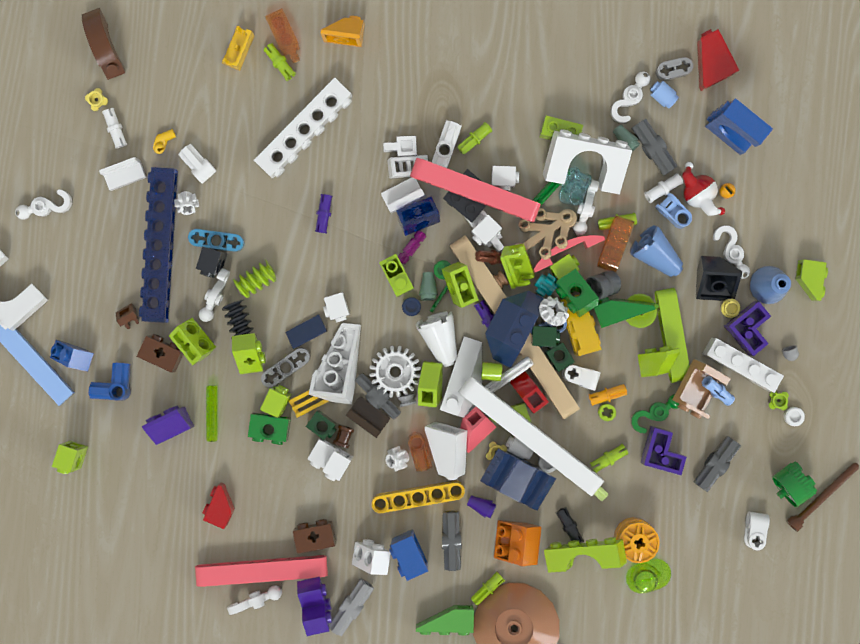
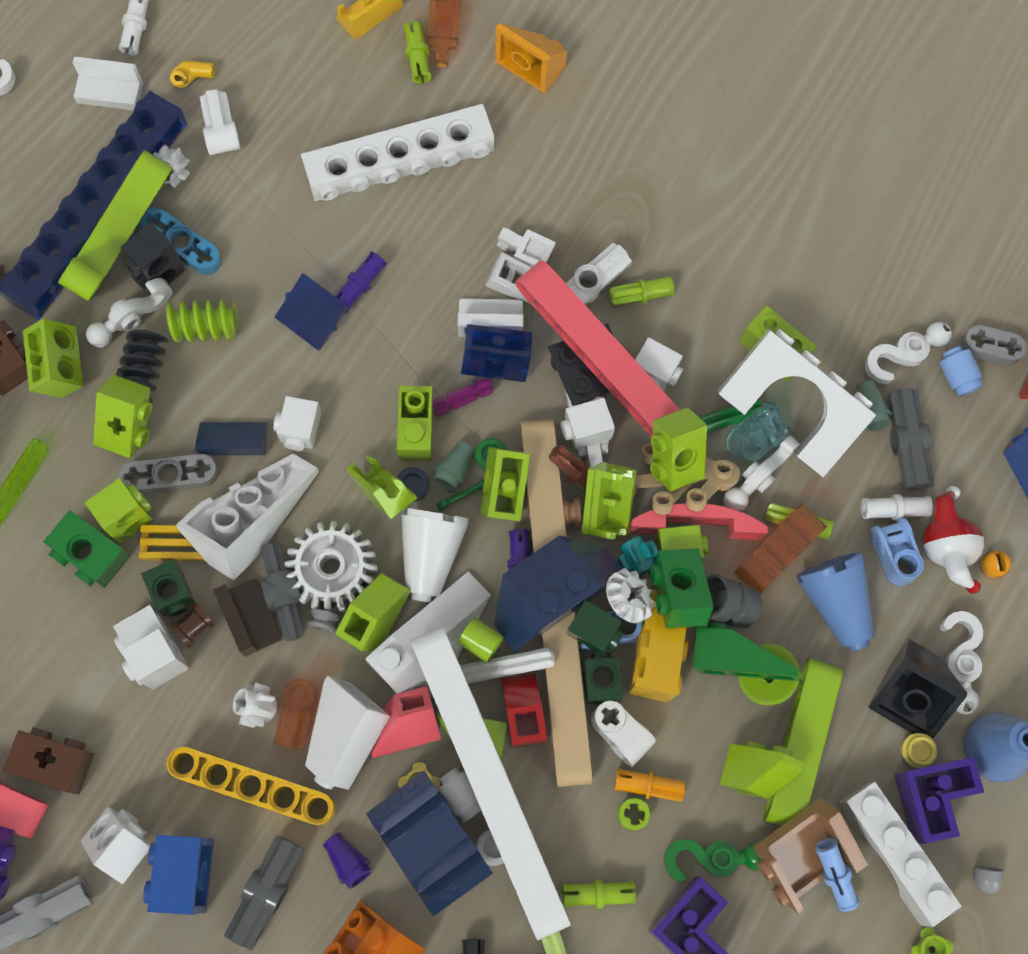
camera: 25 degrees right, 15 degrees down
(181, 258) = (116, 226): none -> lime beam
(308, 243) = (311, 311): none -> clear blue piece
(399, 319) = (382, 488): none -> lime hinge
(540, 222) = (678, 449): none -> lime brick

